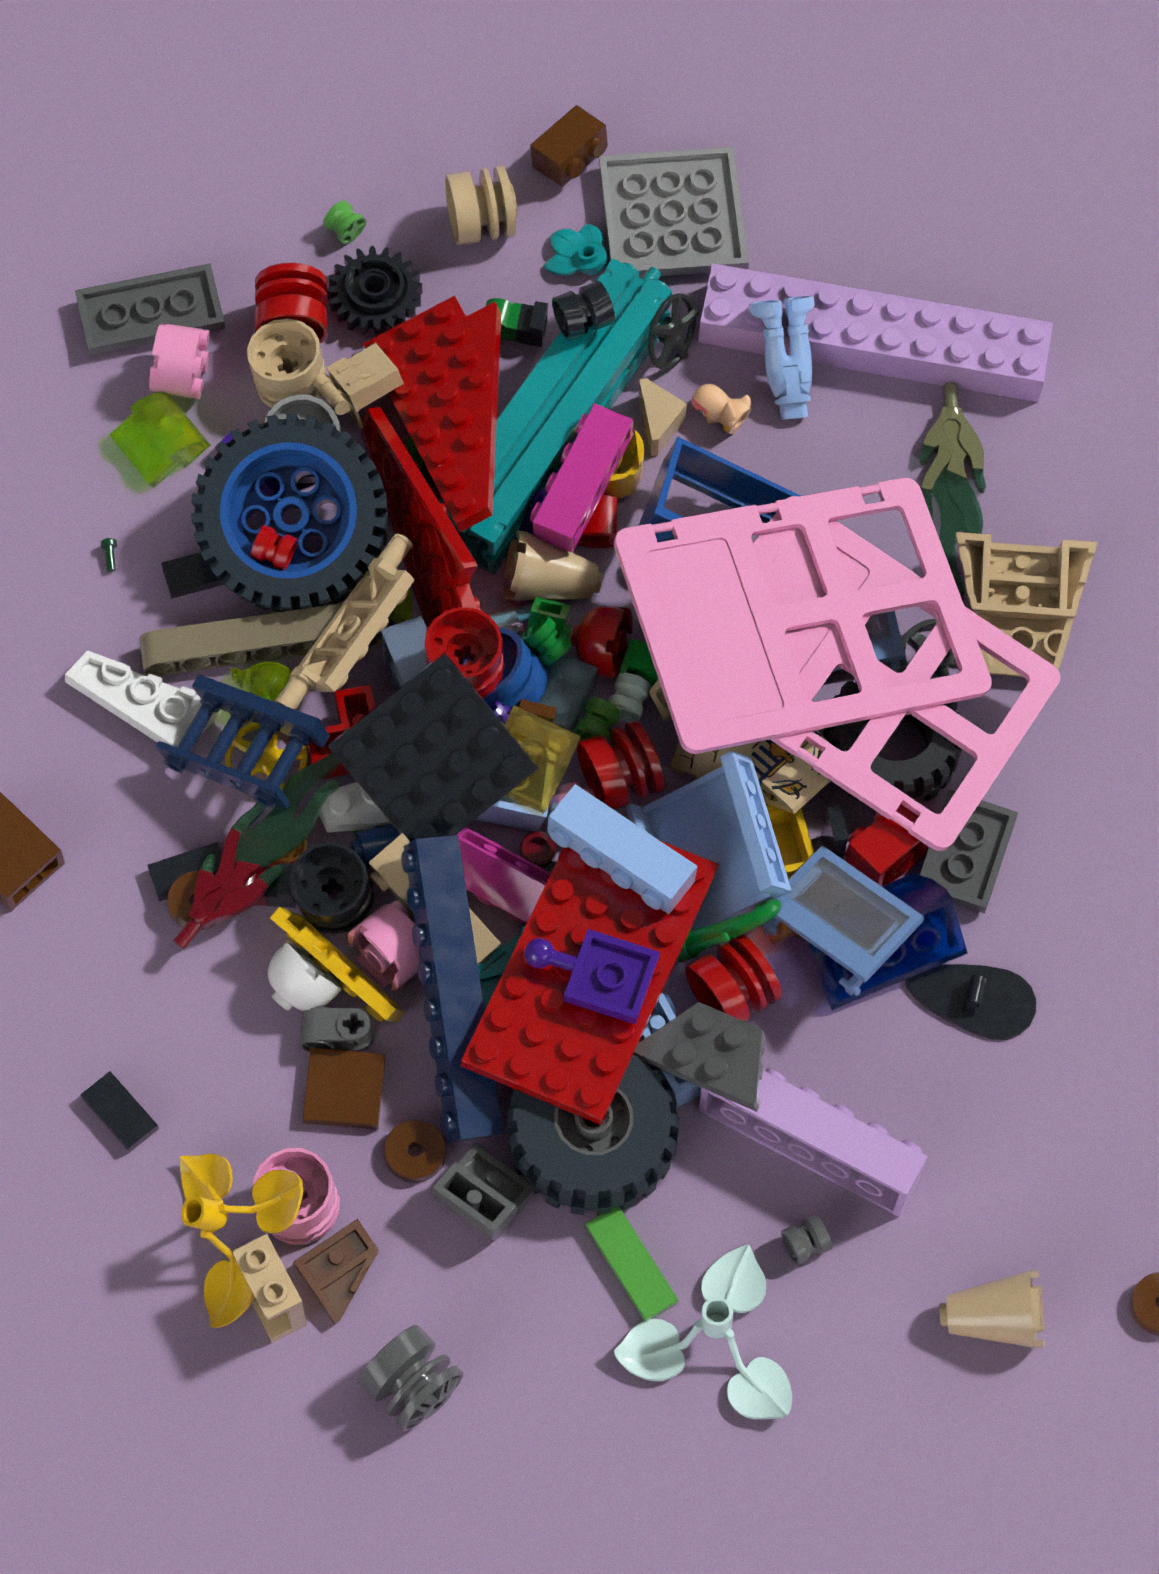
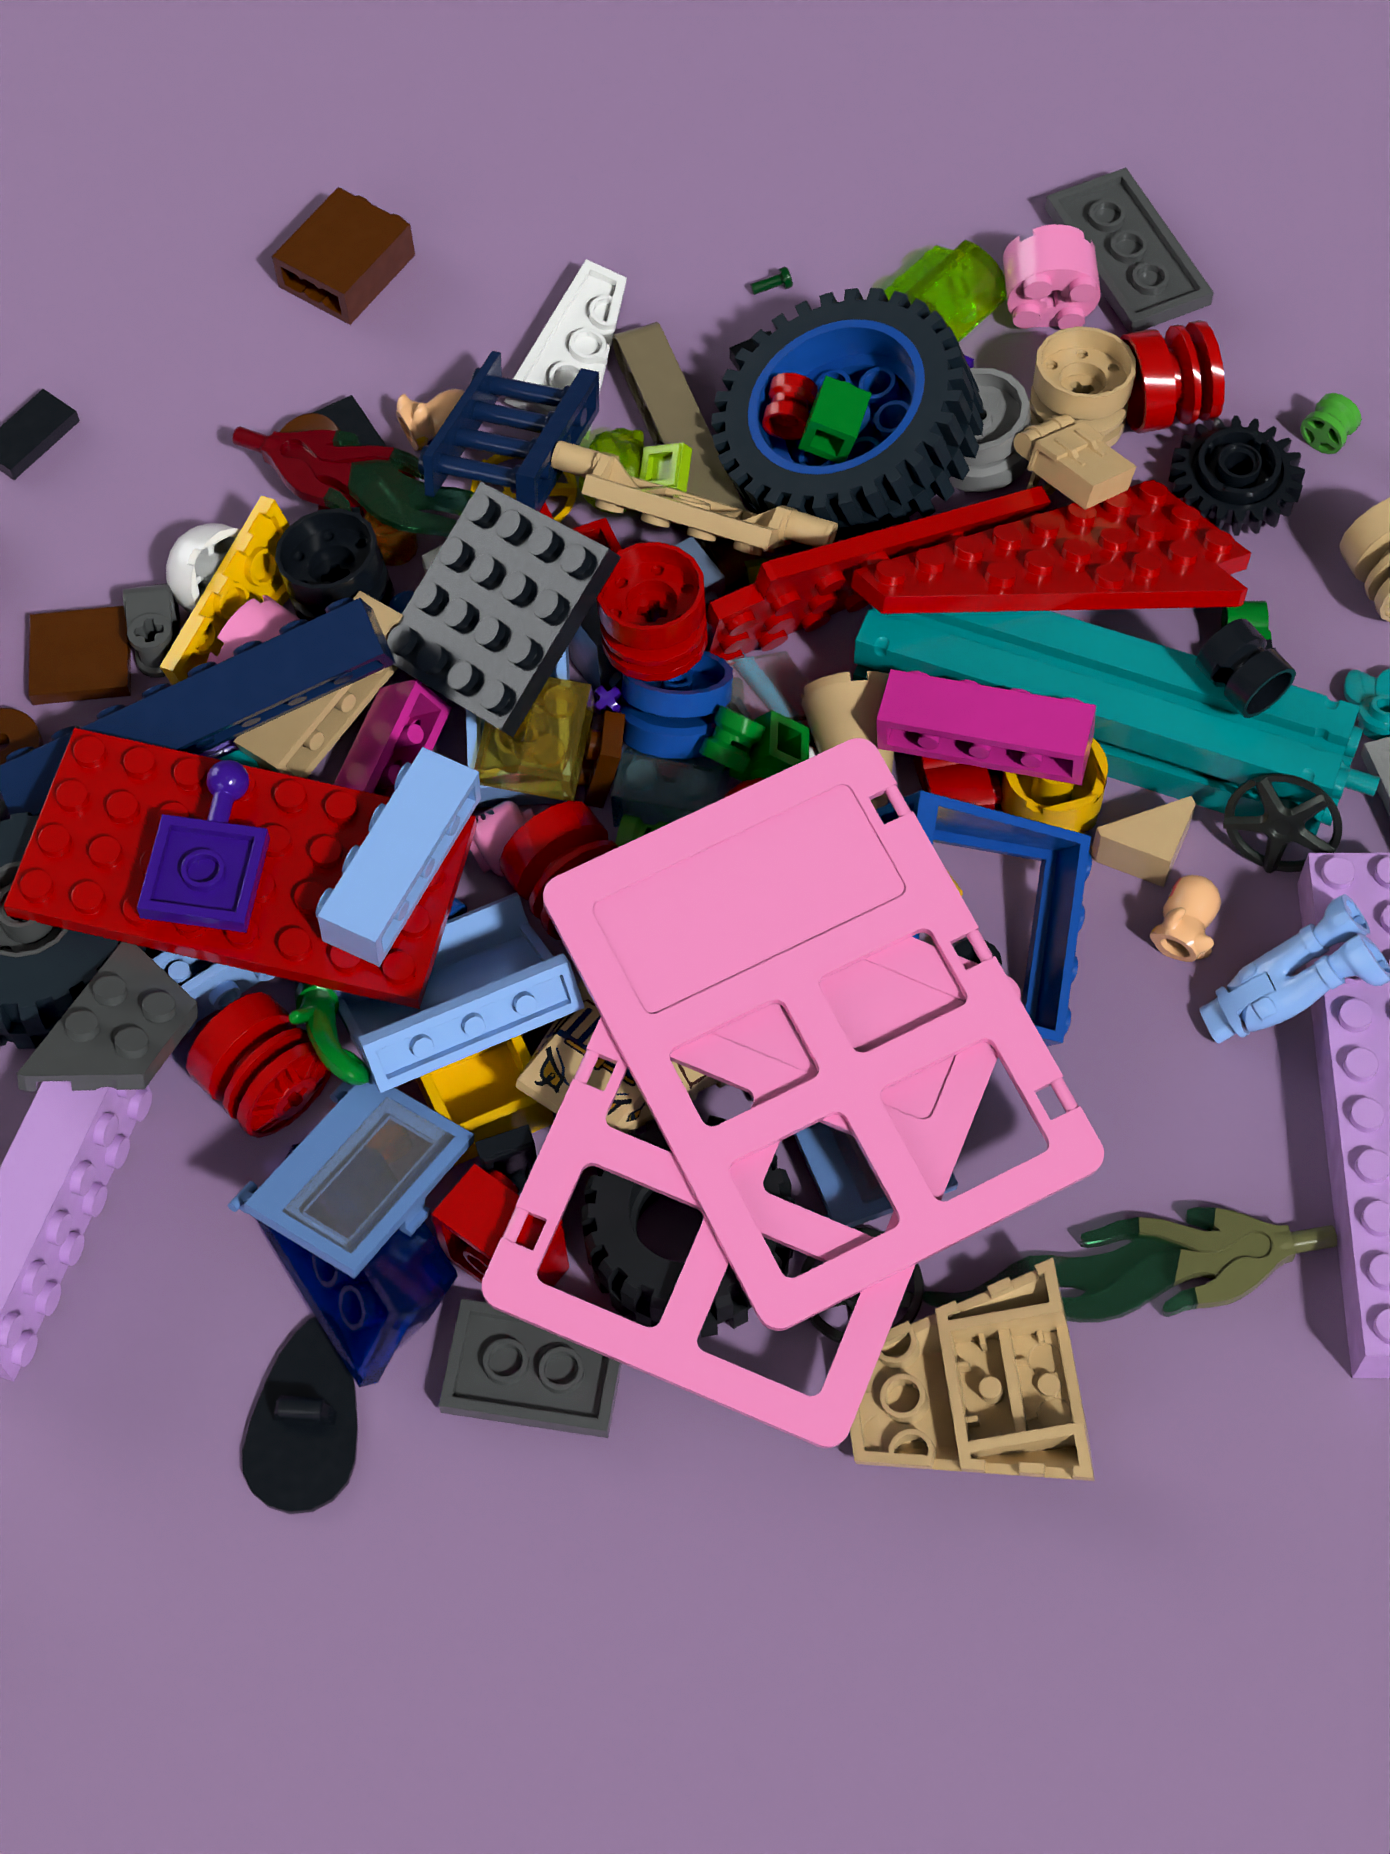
camera: 85 degrees right, 5 degrees down
(189, 801) = (423, 420): none -> light nougat animal
(289, 649) = (667, 465): none -> lime tile
(308, 515) = (834, 420): none -> green brick

